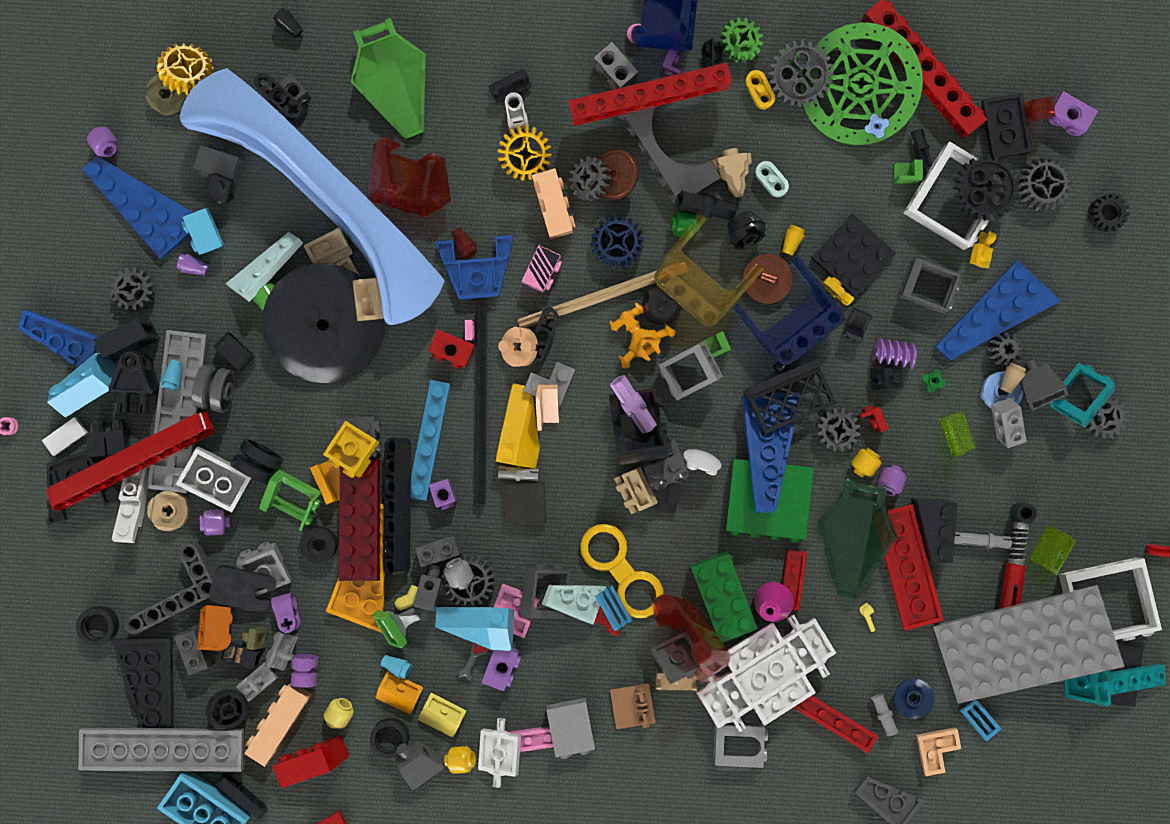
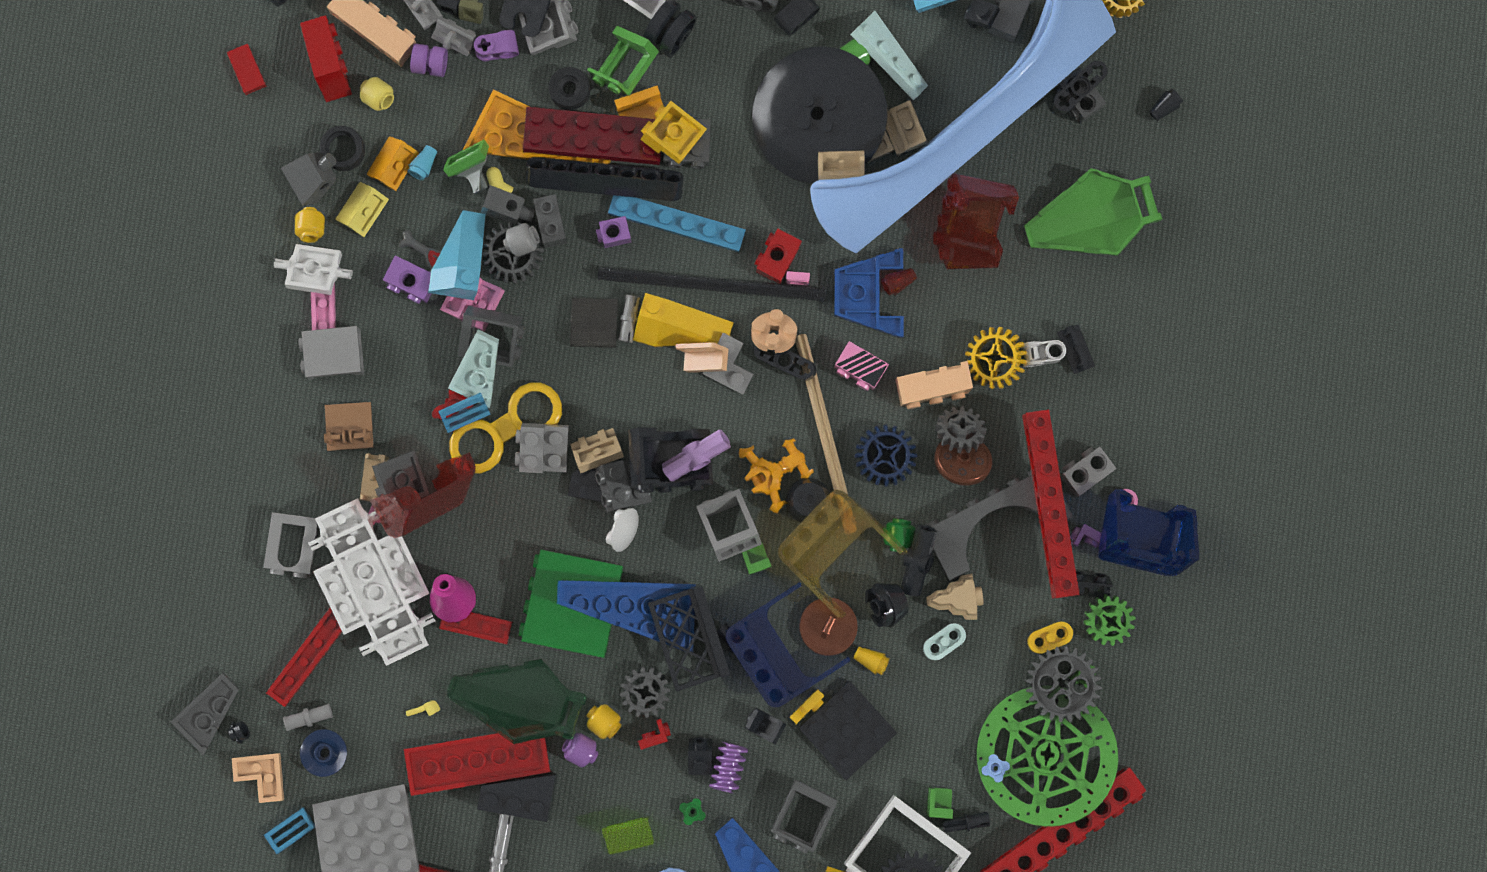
camera: 90 degrees right, 5 degrees down
(637, 537) = (542, 448): none -> light grey plate
(723, 596) = (464, 540): green brick -> none
(902, 772) = (239, 732): none -> black plate

